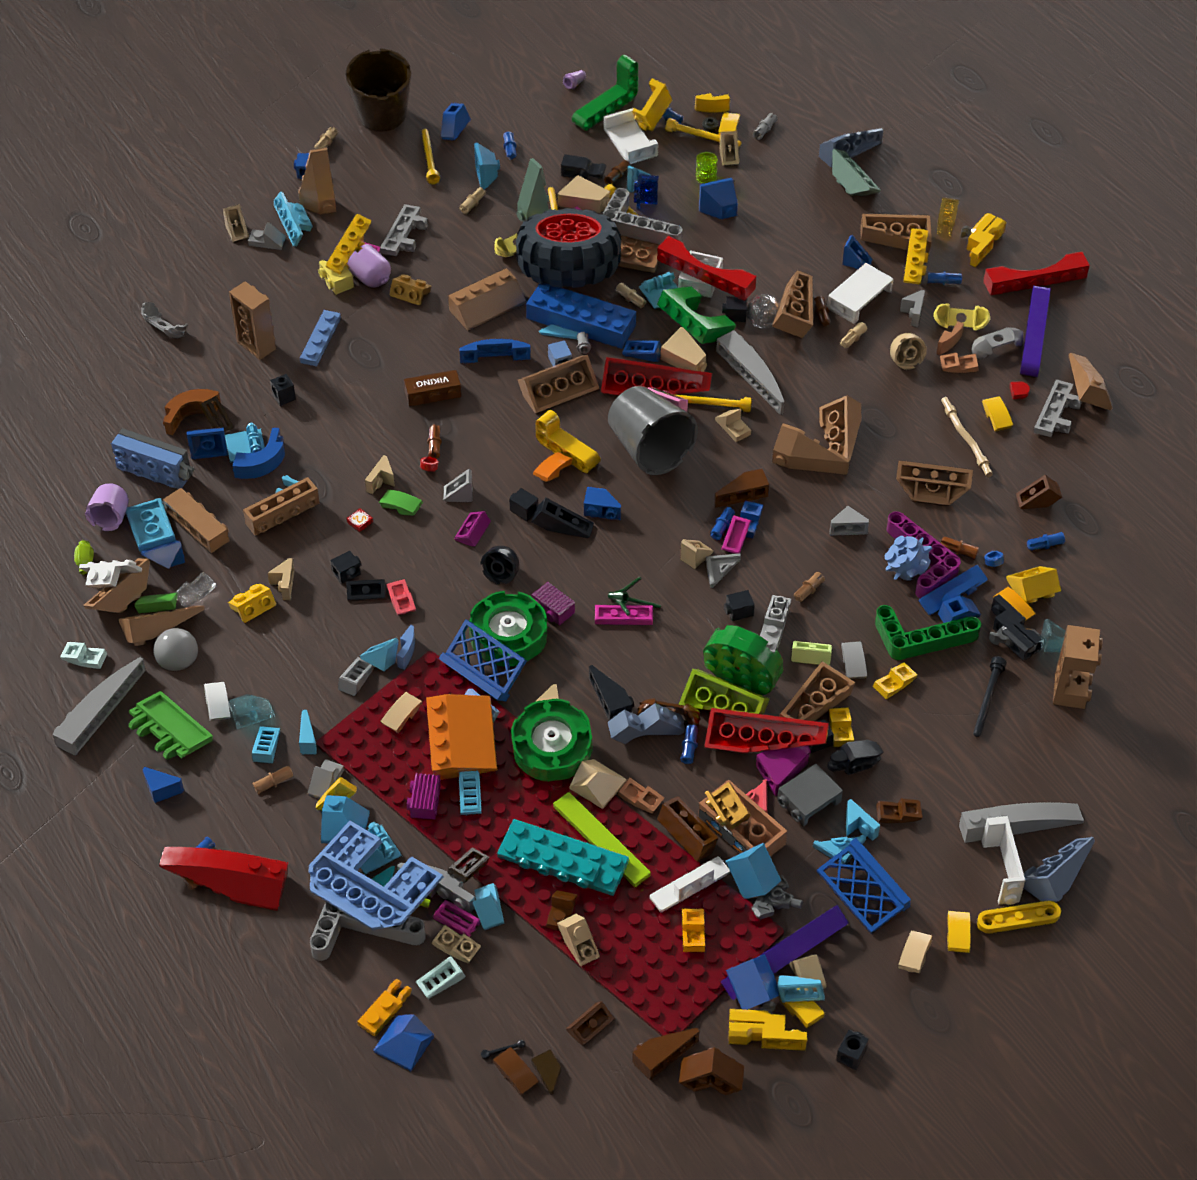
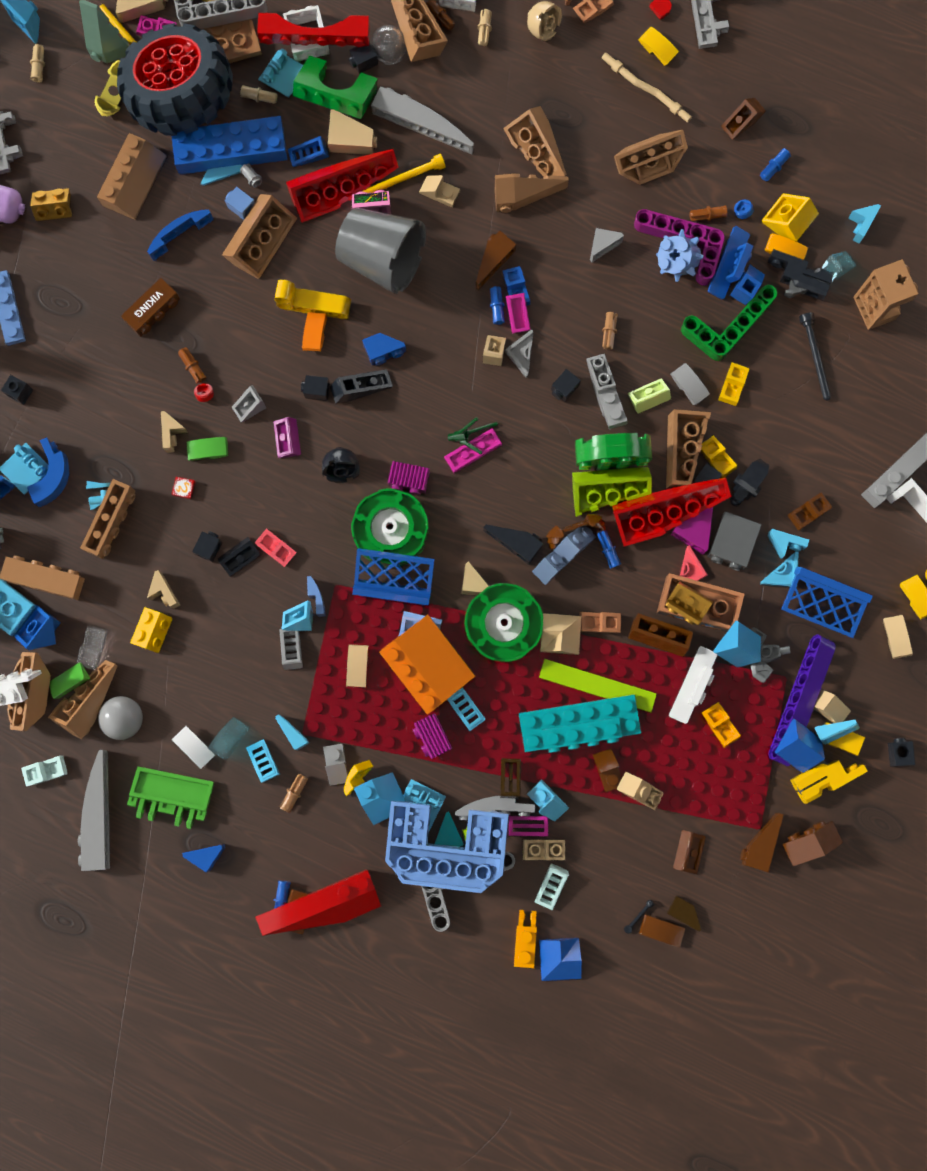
camera: 30 degrees left, 30 degrees up
(1103, 616) = (864, 219): none -> medium azure slope

